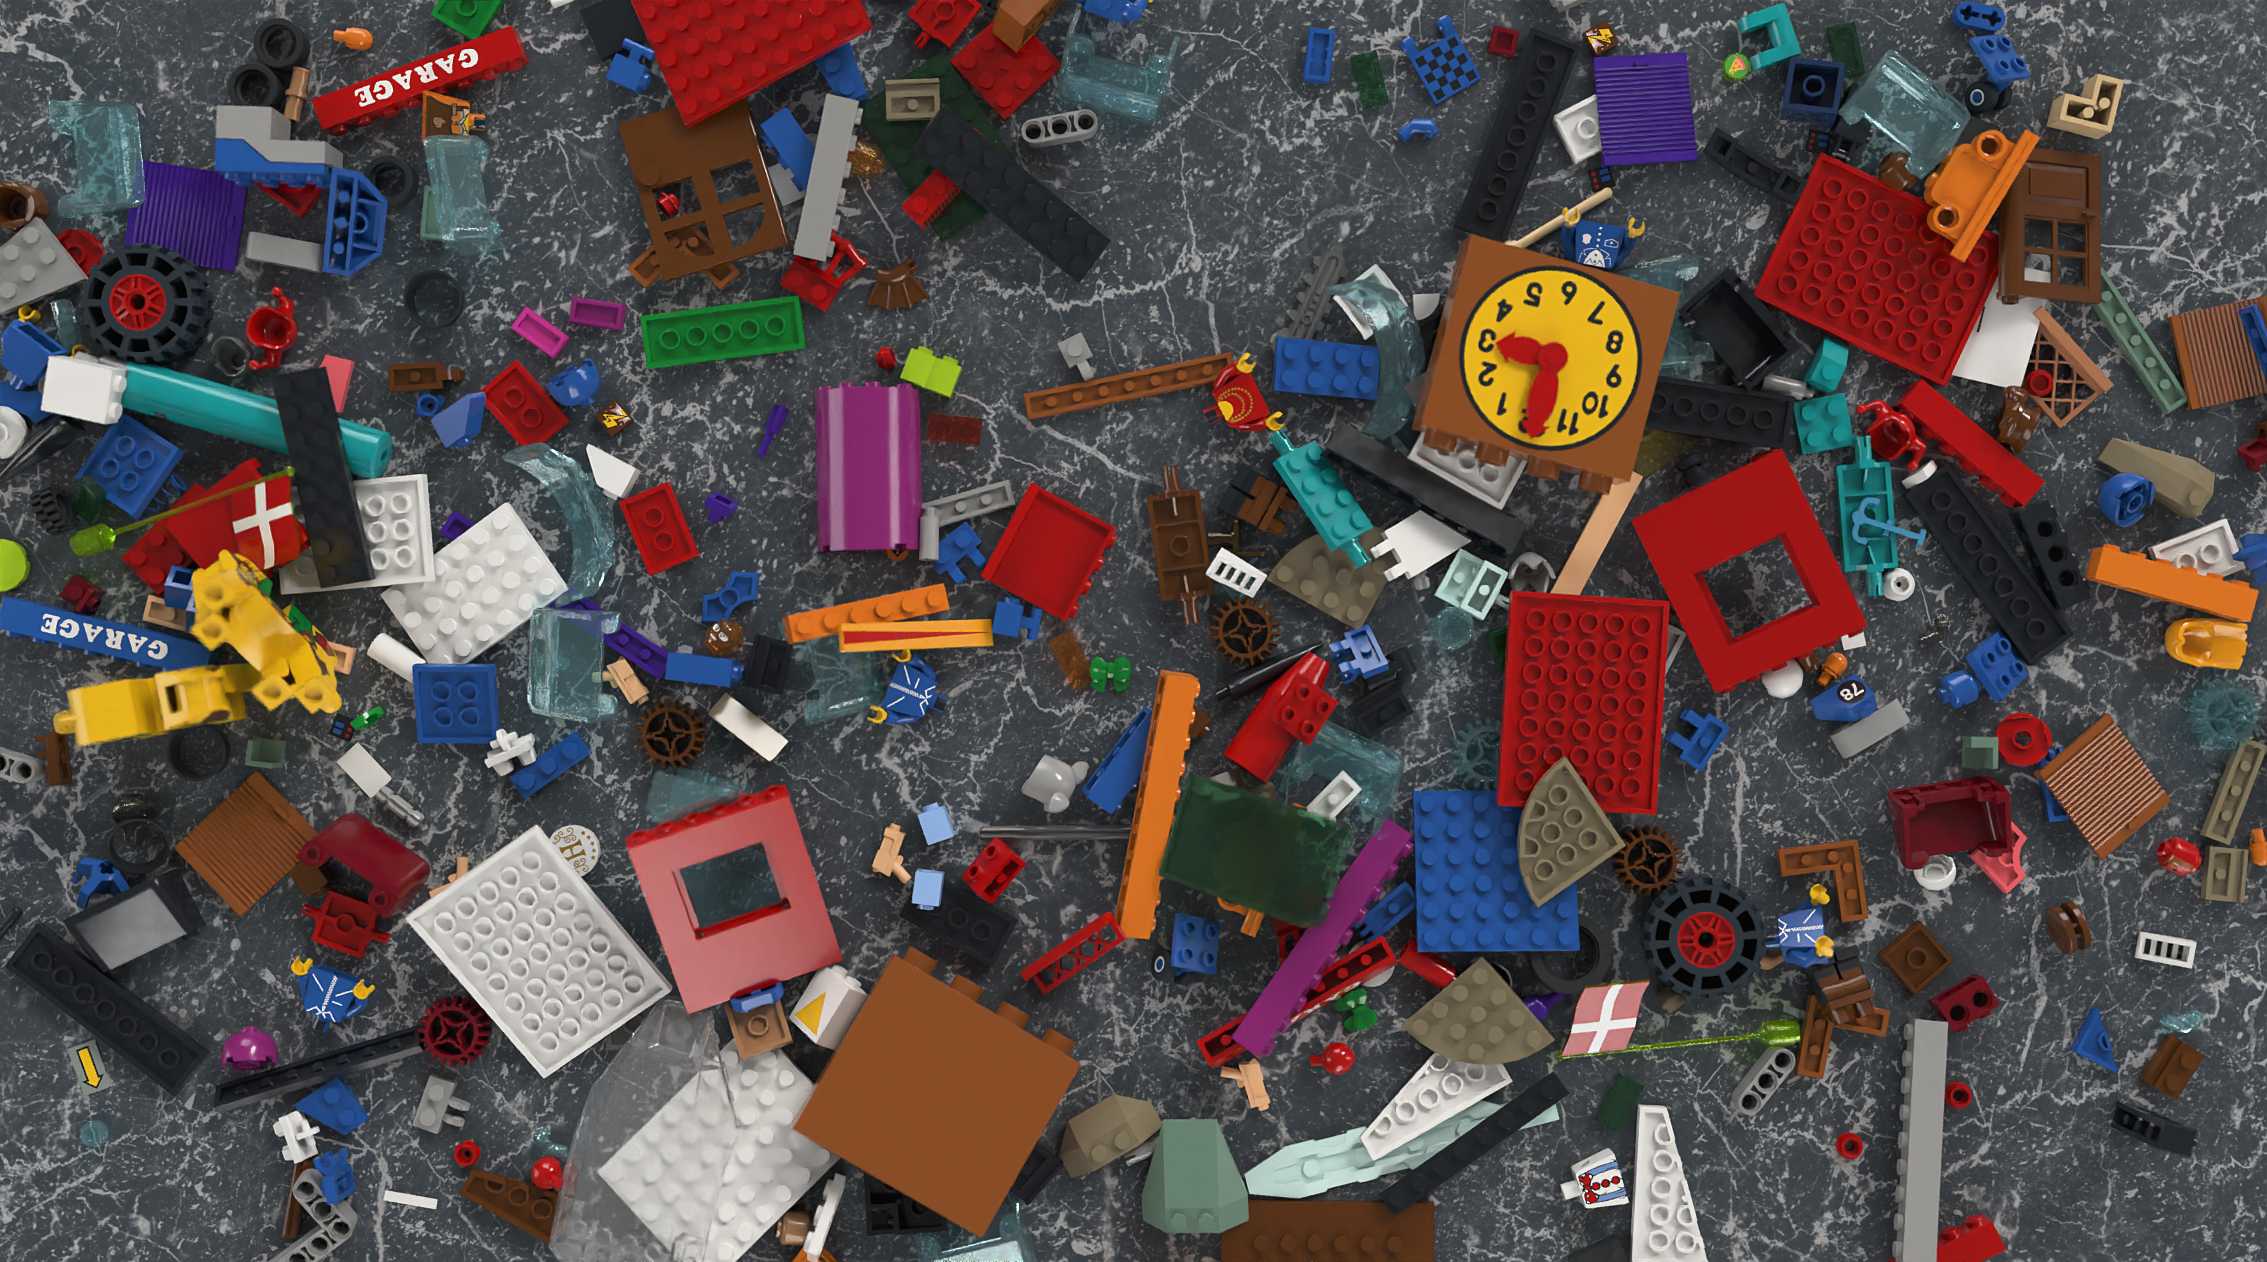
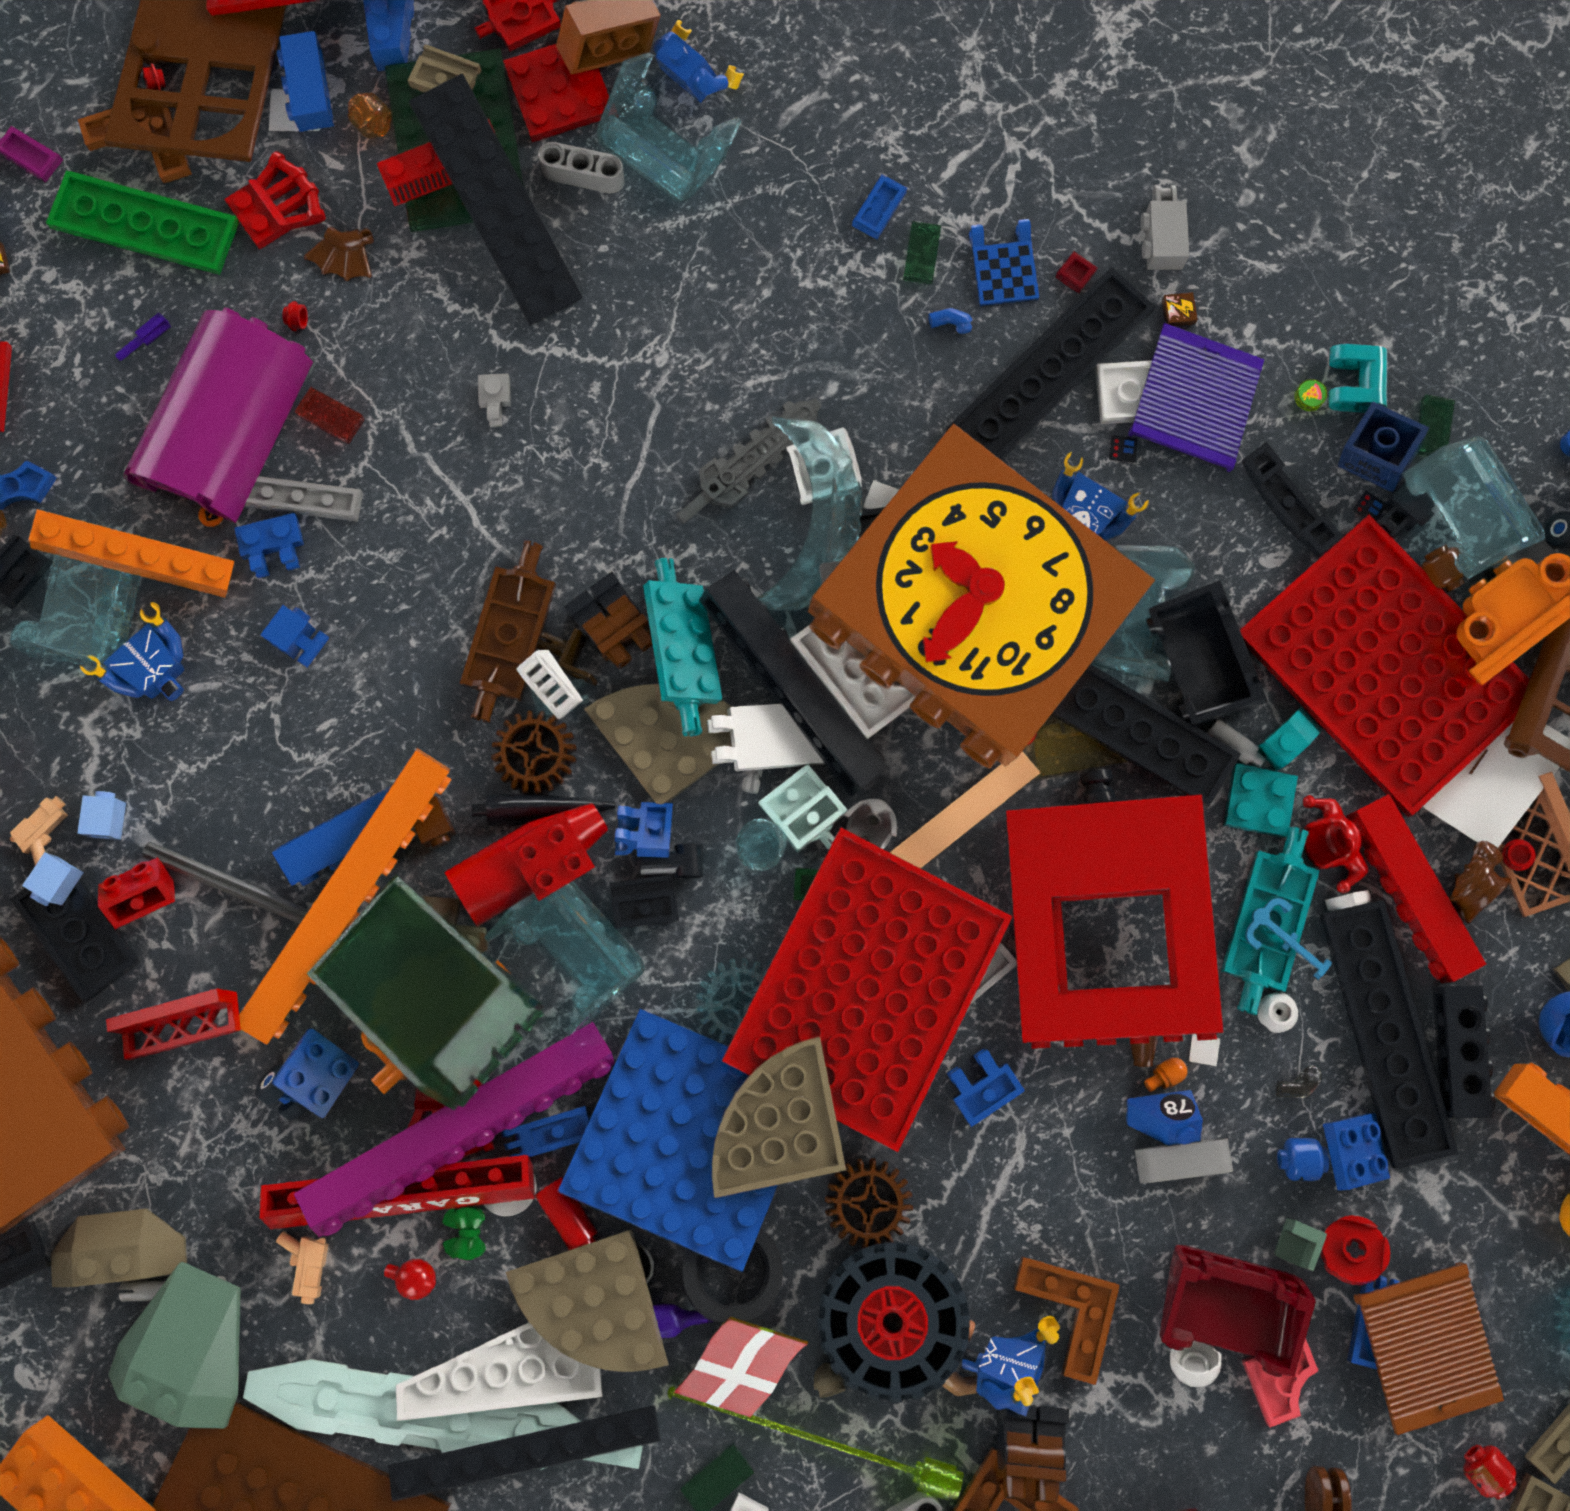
camera: 15 degrees right, 10 degrees down
(720, 507) = (47, 390): dark purple tile -> none
(826, 178) = (317, 109): light grey brick -> none
(915, 635) = (171, 598): light orange tile -> none
(929, 536) = (245, 508): light grey cylinder -> none
(931, 372) = (333, 348): lime brick -> none
(1049, 552) = (365, 581): red panel -> none
(1054, 782) = (248, 824): light grey piece -> none
(1071, 659) = (337, 707): clear orange slope -> none
(1118, 670) = (360, 729): green piece -> none
(1125, 386) = (533, 450): dark orange tile -> none
(1240, 400) = (640, 506): red torso -> none
(1325, 369) = (746, 515): blue plate -> none
(1335, 795) = (551, 975): white plate -> none
(1558, 221) = (1086, 469): tan piece -> none
(1784, 681) = (1107, 1063): white hair -> none
(1915, 957) = (1134, 1458): reddish brown tile -> none

